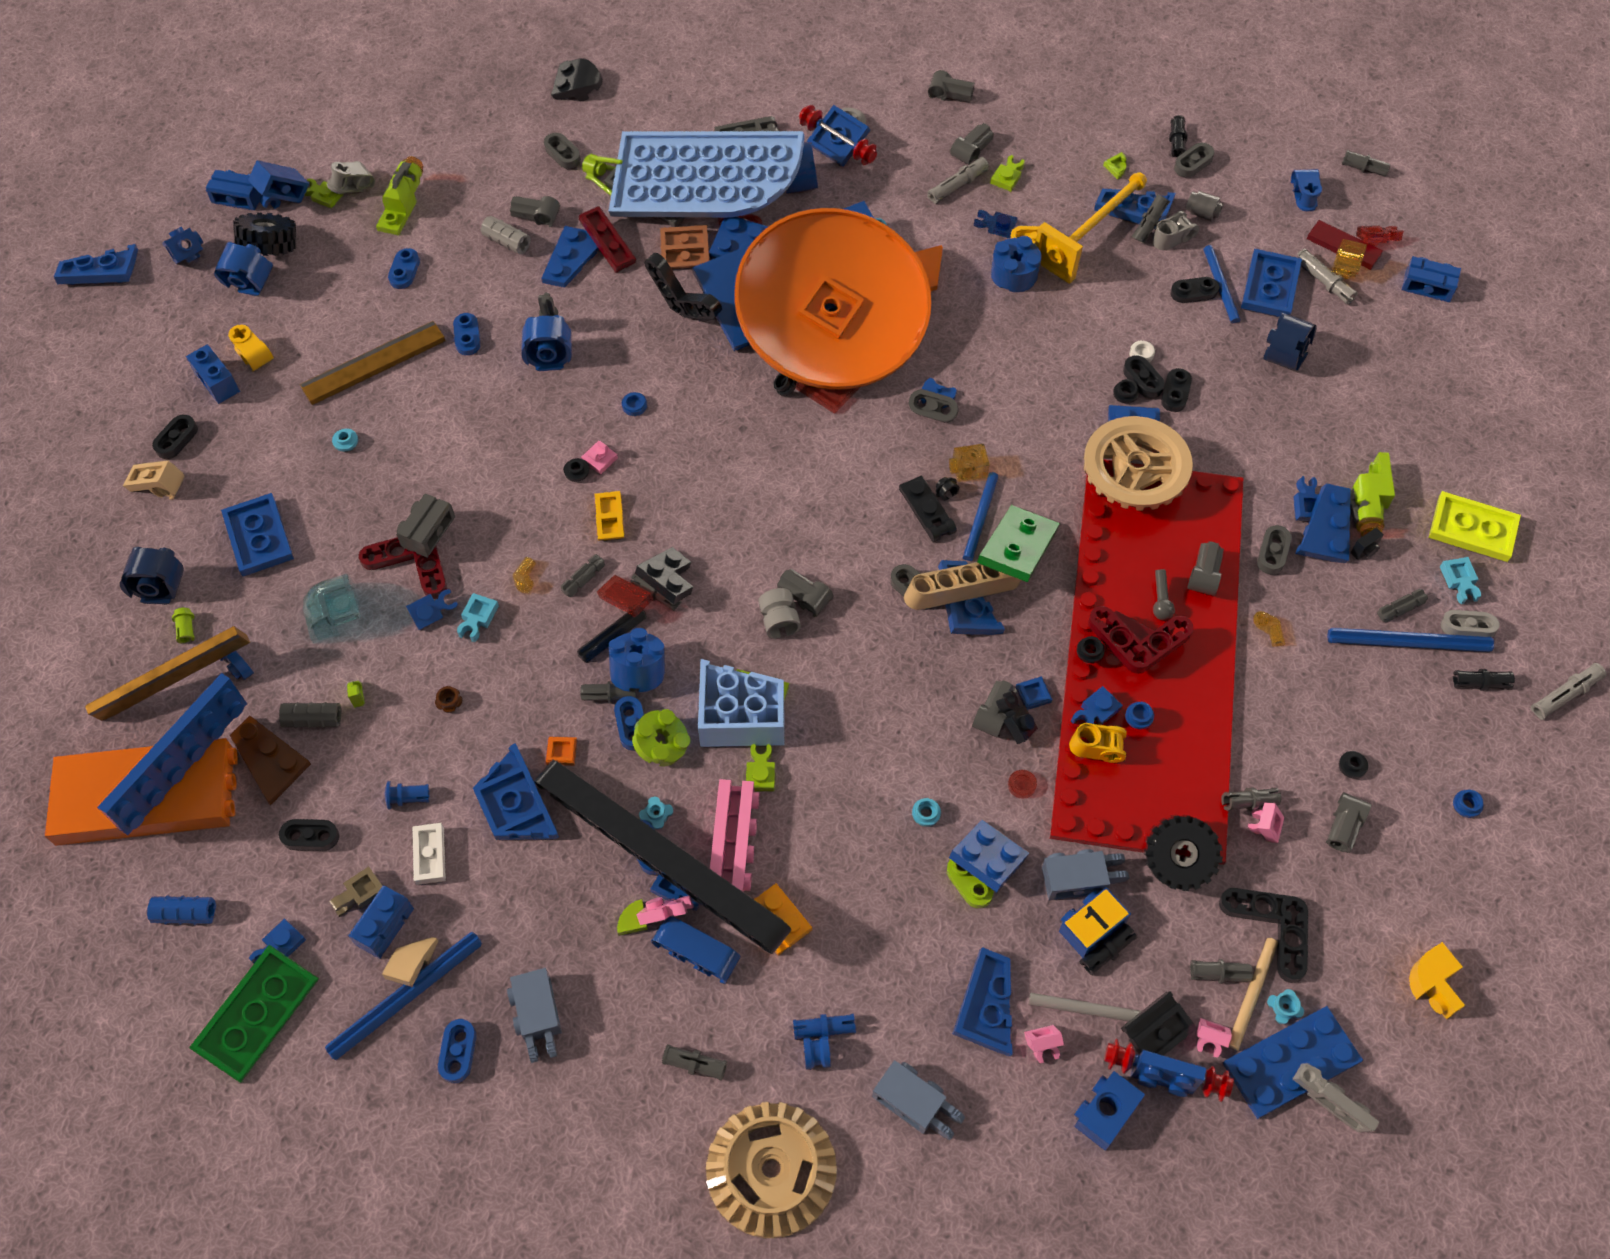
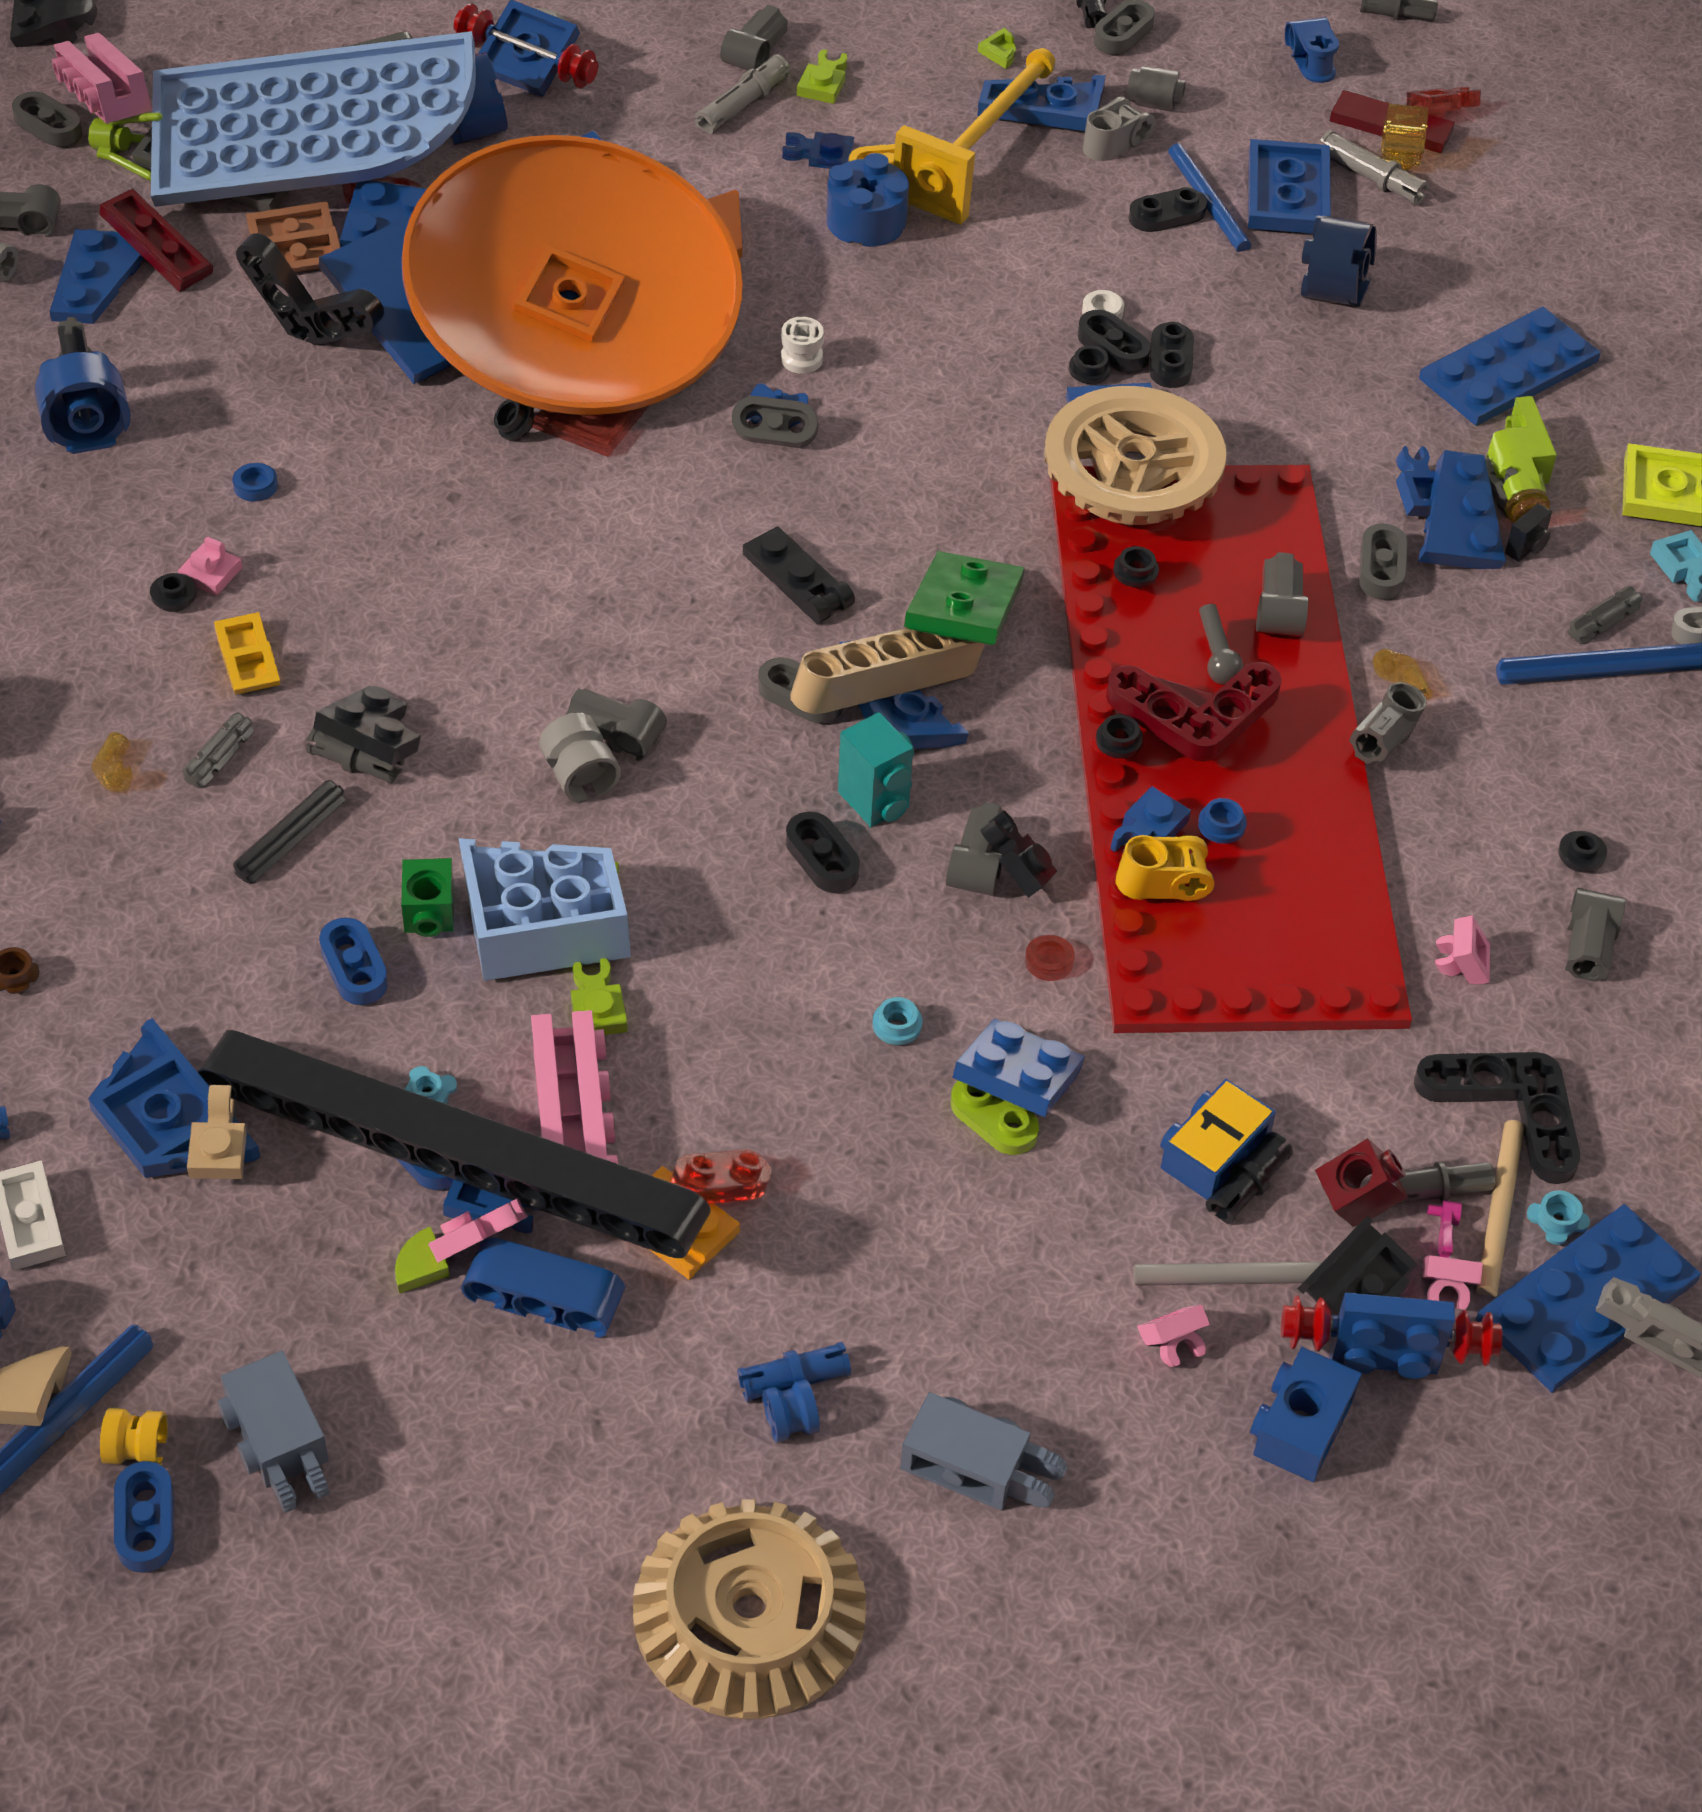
camera: 15 degrees left, 10 degrees down
(459, 1001) = (132, 1436): none -> yellow wheel
(477, 613) = (40, 830): medium azure plate -> none
(535, 831) = (219, 1145): none -> tan plate
(562, 750) = (236, 1015): orange tile -> none
(594, 132) = (103, 80): none -> bright pink brick
(607, 691) = (298, 918): dark grey axle -> none
(625, 595) = (301, 767): clear red tile -> none
(637, 661) = (346, 857): blue brick -> none
(671, 727) = (421, 953): lime plate -> none
(678, 680) = (427, 896): none -> green brick
(694, 1062) = (578, 1463): dark grey pin -> none
(809, 897) = (723, 1175): none -> clear red plate
(905, 696) = (827, 853): none -> black plate
(944, 650) = (875, 769): none -> teal brick
(945, 485) = (822, 535): black plate -> none
(959, 356) = (802, 345): none -> white wheel
(977, 459) = (855, 496): clear yellow brick -> none
(980, 516) = (890, 571): blue bar -> none
(986, 1004) = (1064, 1292): blue wing -> none
(1034, 693) = (1040, 820): blue tile -> none
(1080, 873) = (1175, 1070): sand blue hinge -> none
(1126, 531) = (1136, 567): none -> black plate
(1150, 218) = (1074, 112): dark grey pin -> none
(1161, 963) = (1344, 1174): none -> dark red brick
(1172, 835) = (1316, 1030): black bush -> none
(1221, 993) = (1449, 1215): none -> dark pink piece
(1250, 798) = (1428, 921): dark grey pin -> none
(1253, 663) = (1388, 723): none -> dark grey piece
(1381, 424) = (1509, 364): none -> blue plate
(1431, 279) = (1539, 152): blue brick -> none

